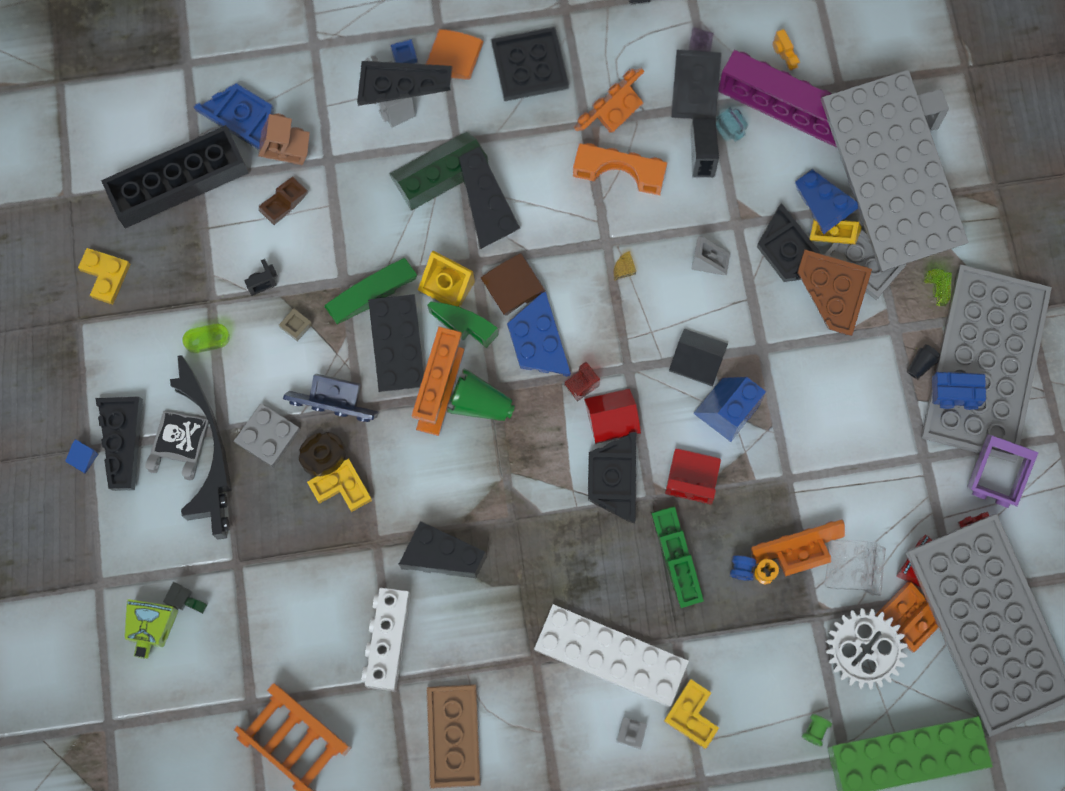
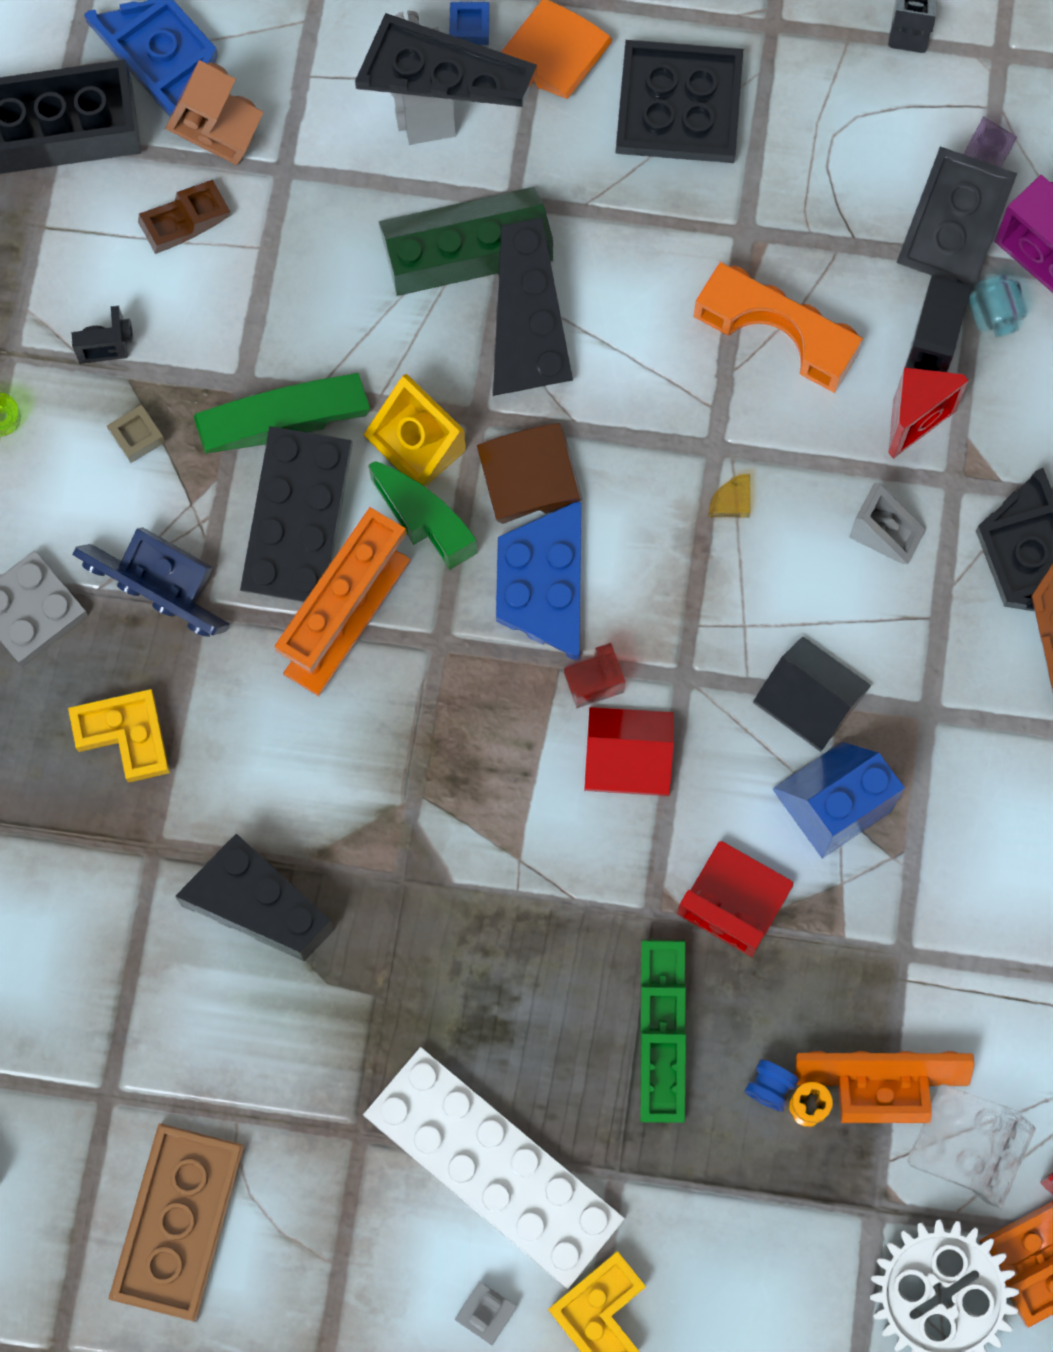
camera: 15 degrees right, 0 degrees up
(322, 454) = (109, 668): dark brown tile -> none
(387, 639) = (117, 1020): white brick -> none
(479, 399) = (406, 654): green cone -> none
(614, 477) = (596, 858): black wing -> none
(615, 106) = (806, 216): orange bracket -> none
(708, 187) = (922, 404): none -> red slope

